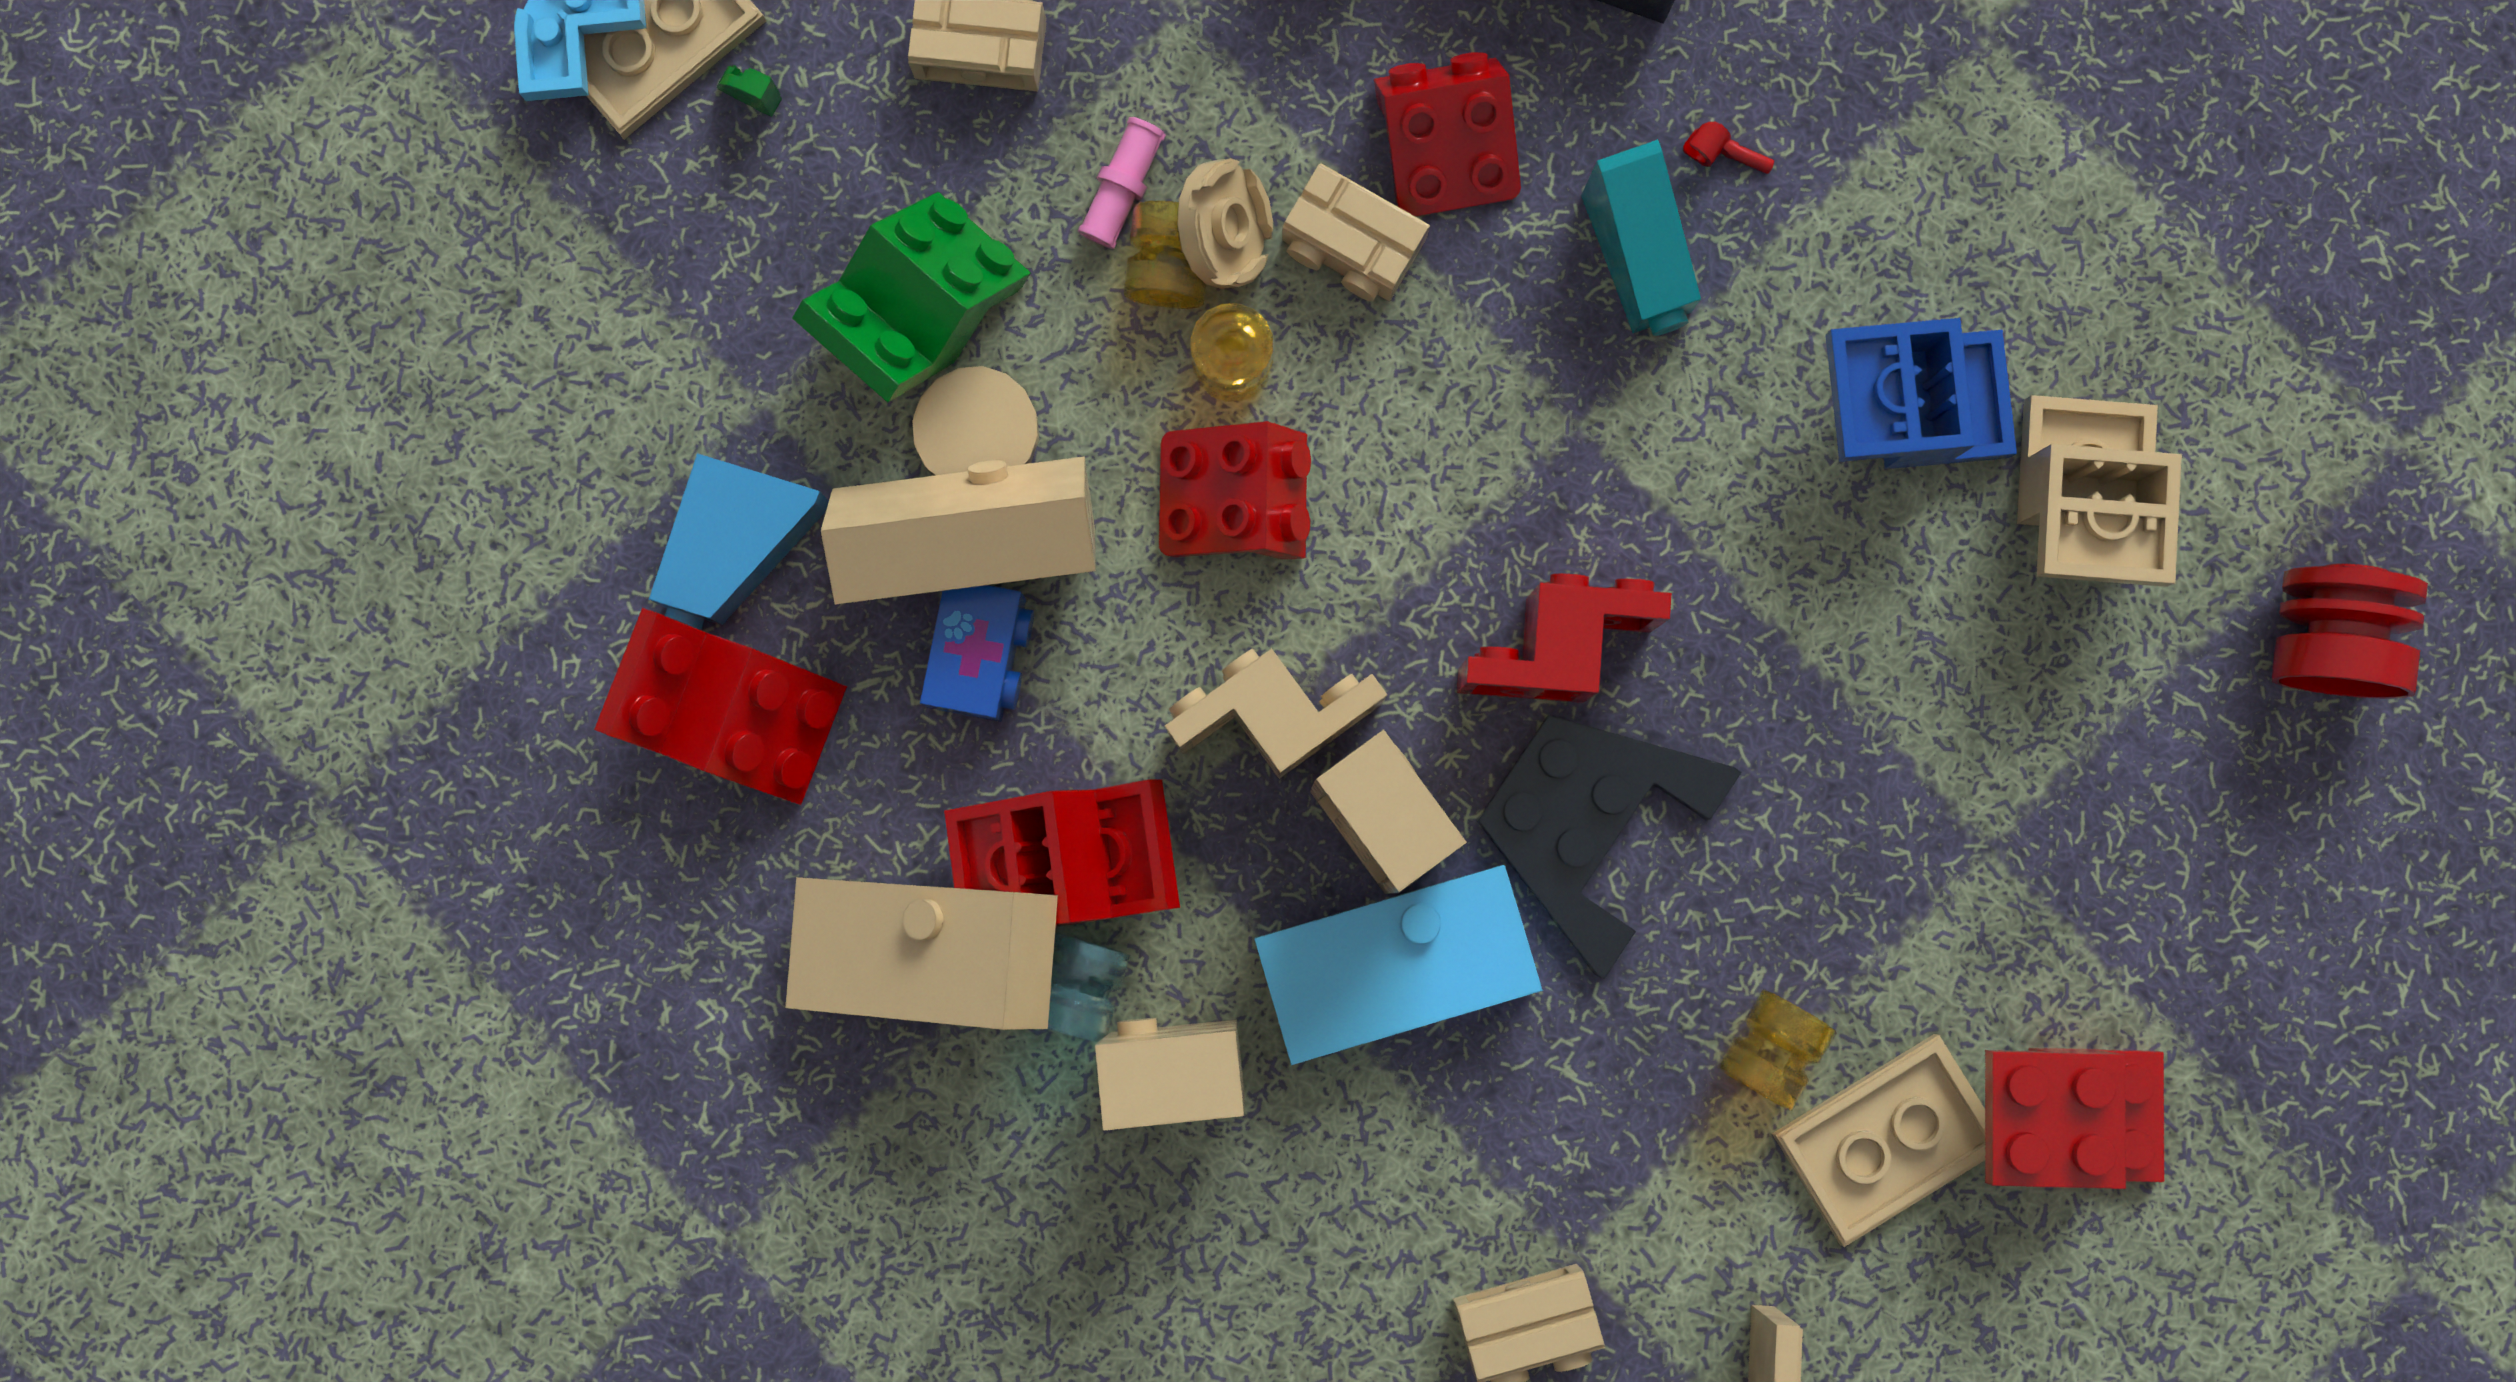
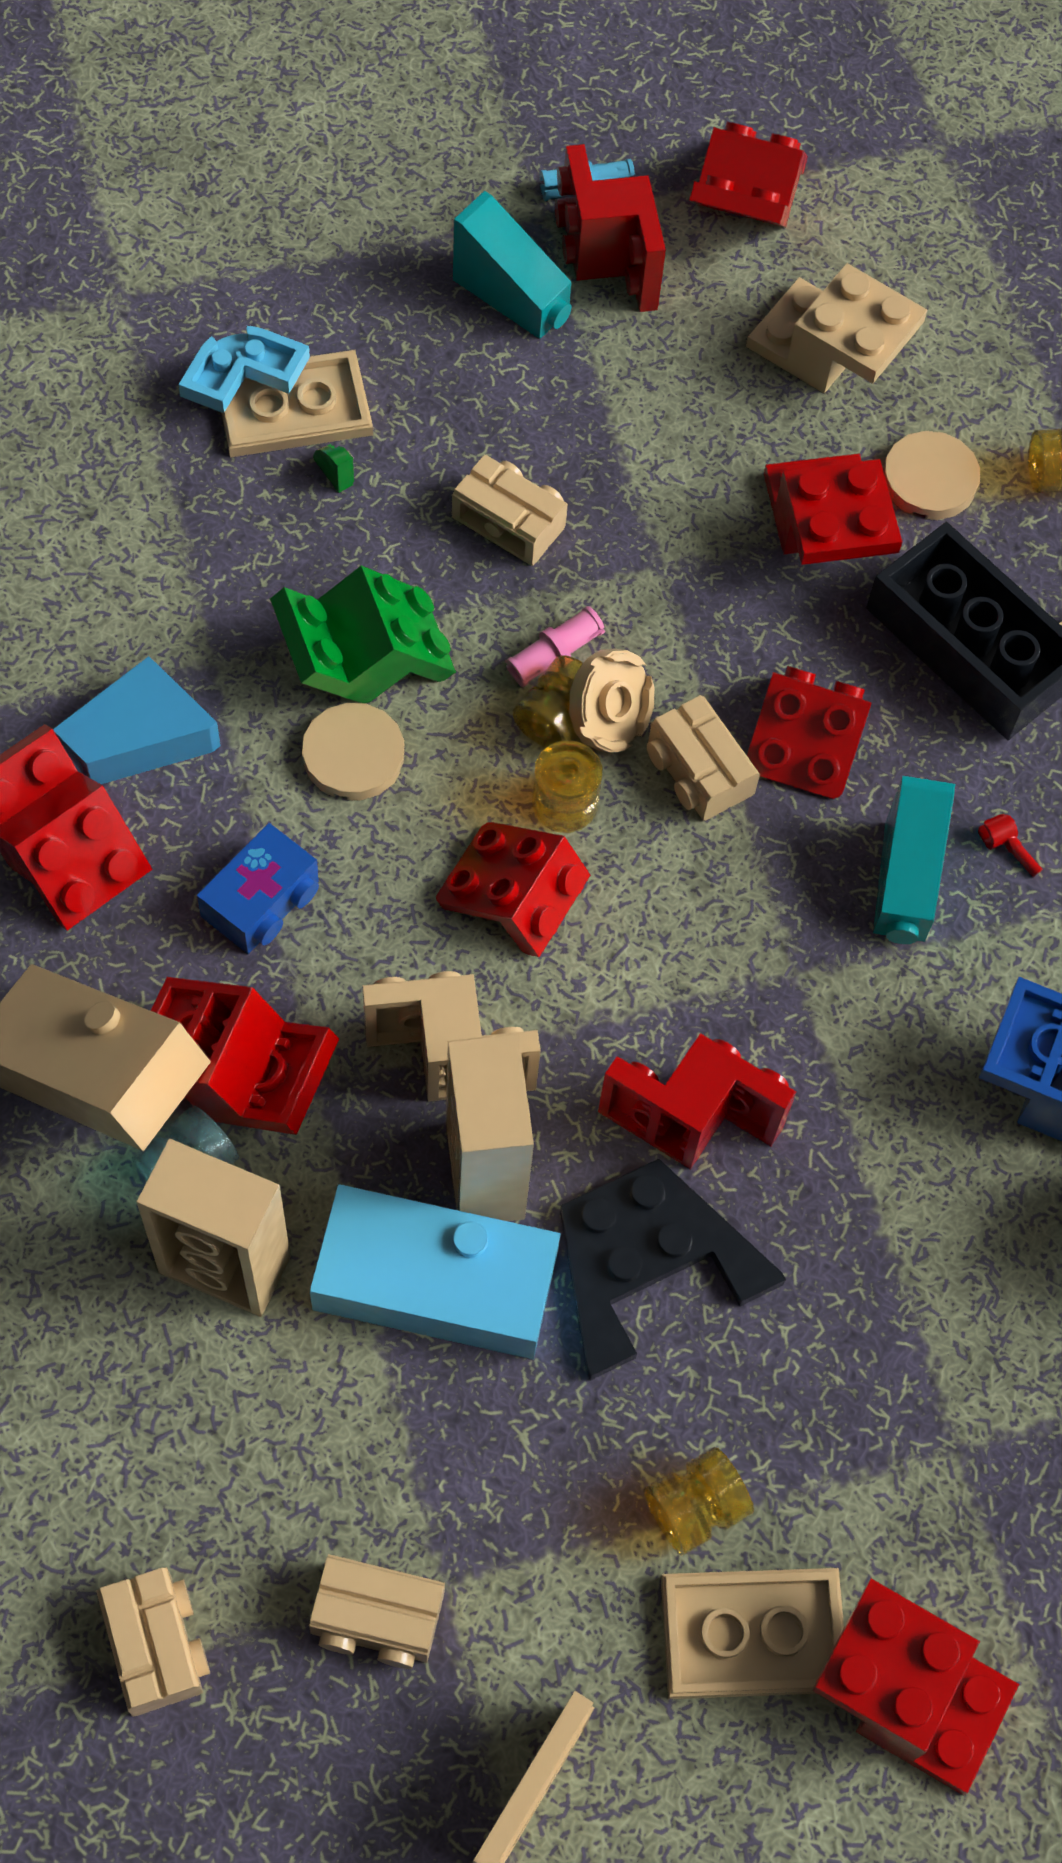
camera: 25 degrees right, 20 degrees down
(959, 530) = (299, 794): tan brick -> none

